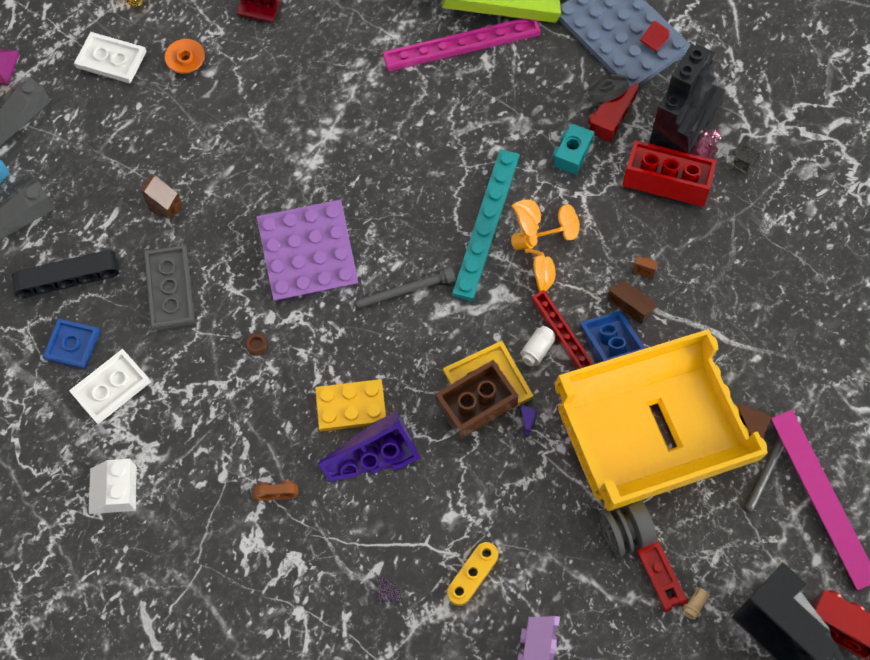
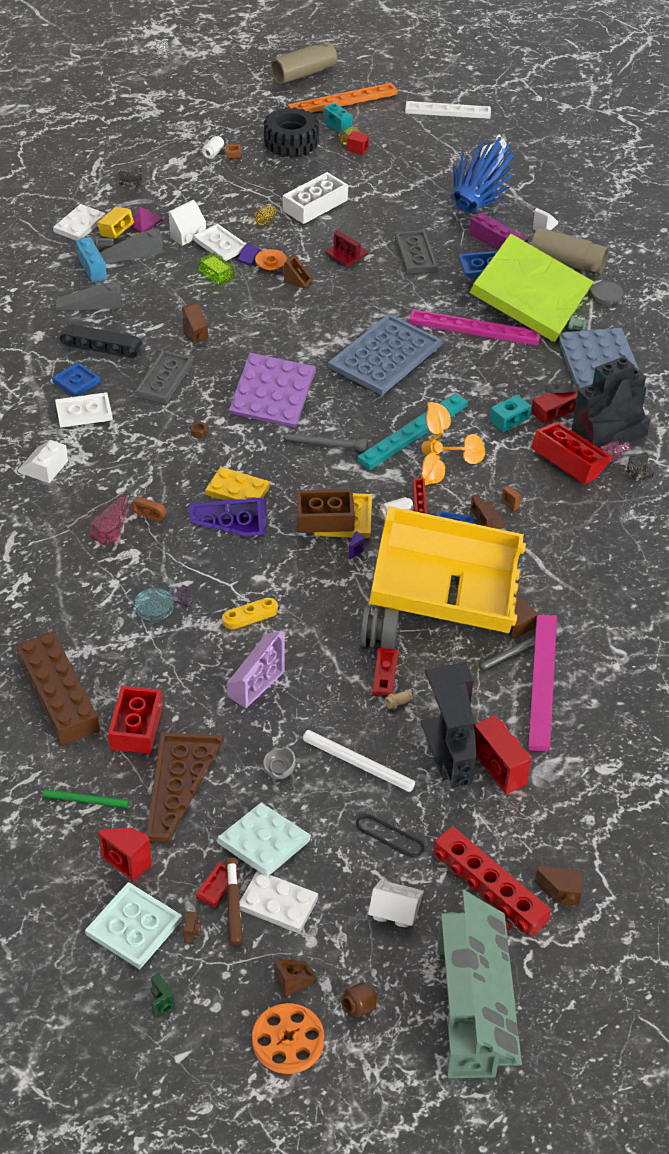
camera: 25 degrees right, 20 degrees down
(57, 51) = (186, 222): none -> white slope
(131, 98) = (216, 268): none -> clear neon green brick
(153, 59) = (248, 254): none -> dark purple slope
(226, 63) = (296, 273): none -> reddish brown slope
(246, 540) = (109, 524): none -> clear pink slope
(363, 620) = (154, 604): none -> clear light blue tile
(392, 131) = (385, 354): none -> sand blue plate

